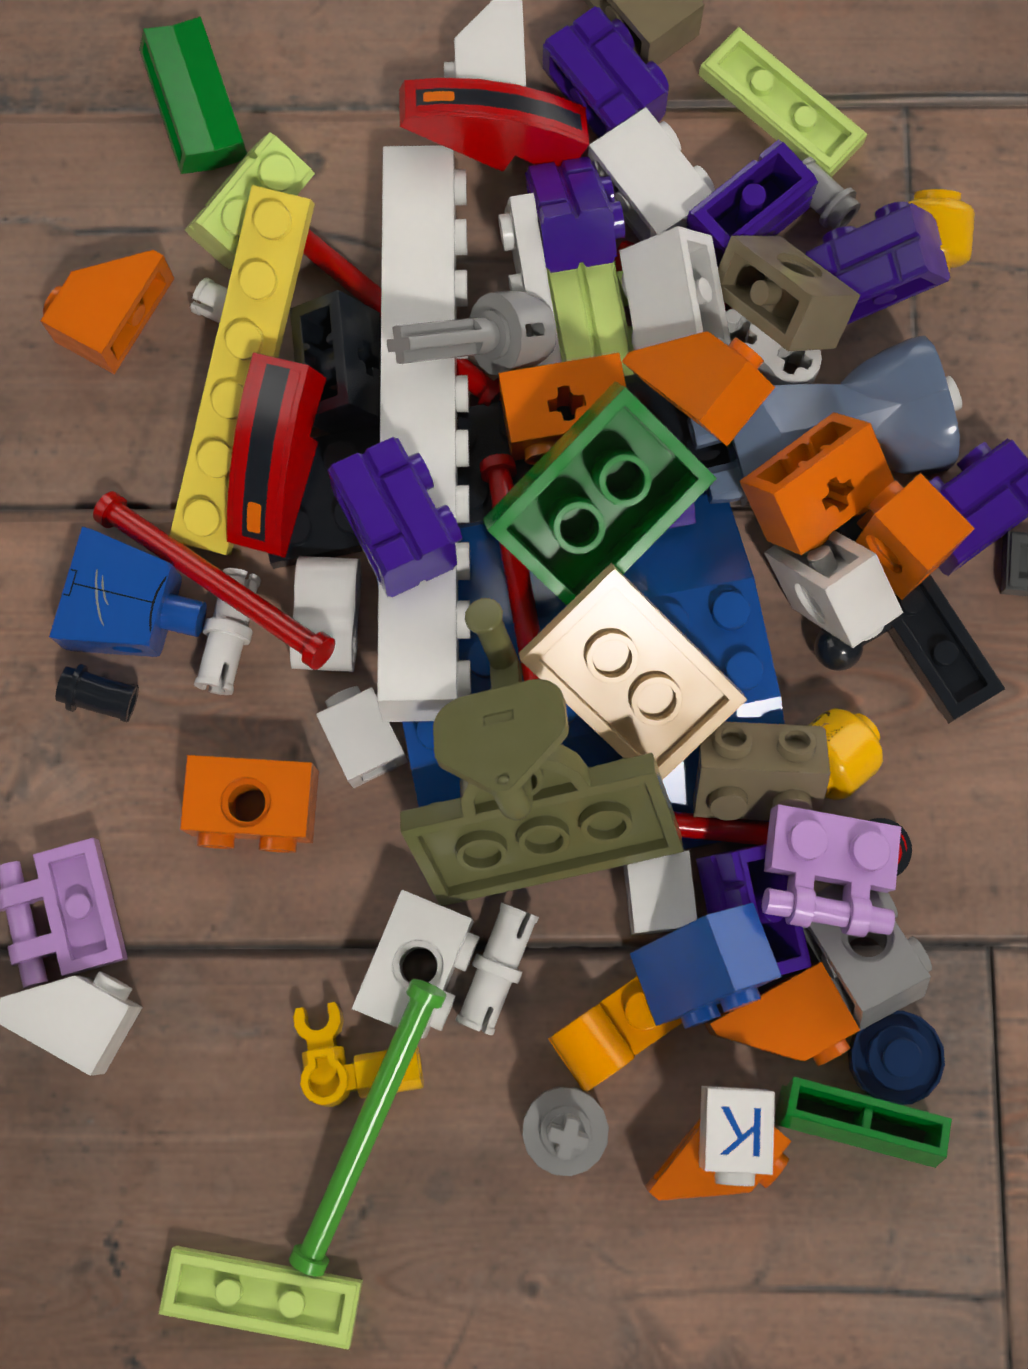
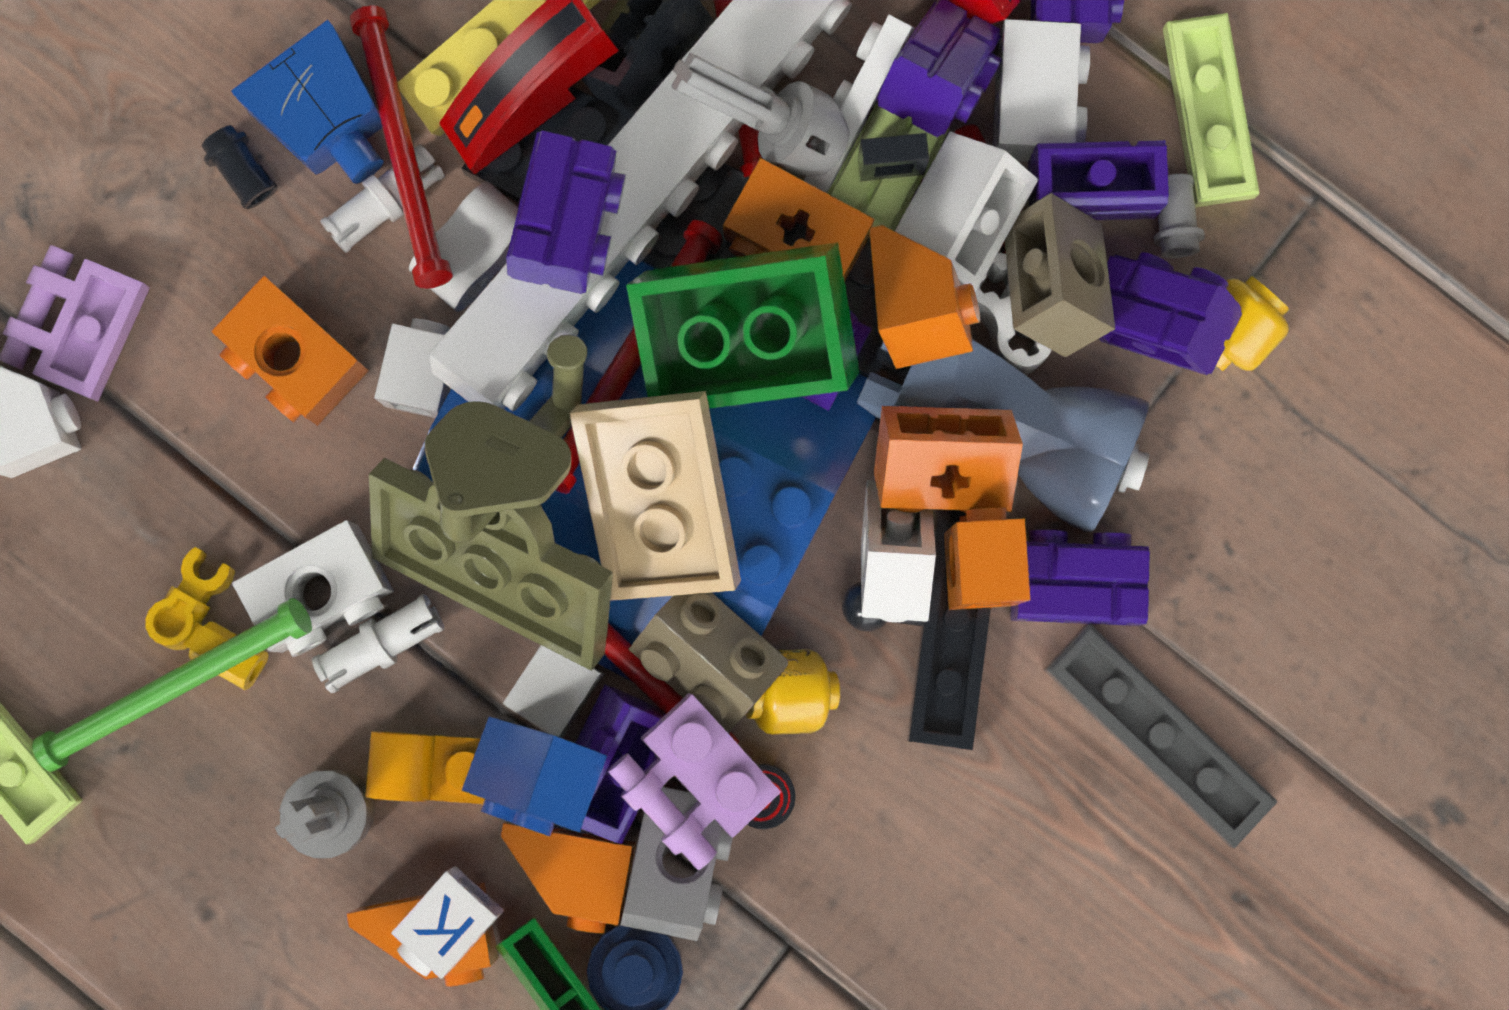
camera: 35 degrees right, 5 degrees up
(594, 298) = (893, 157): none -> black tile

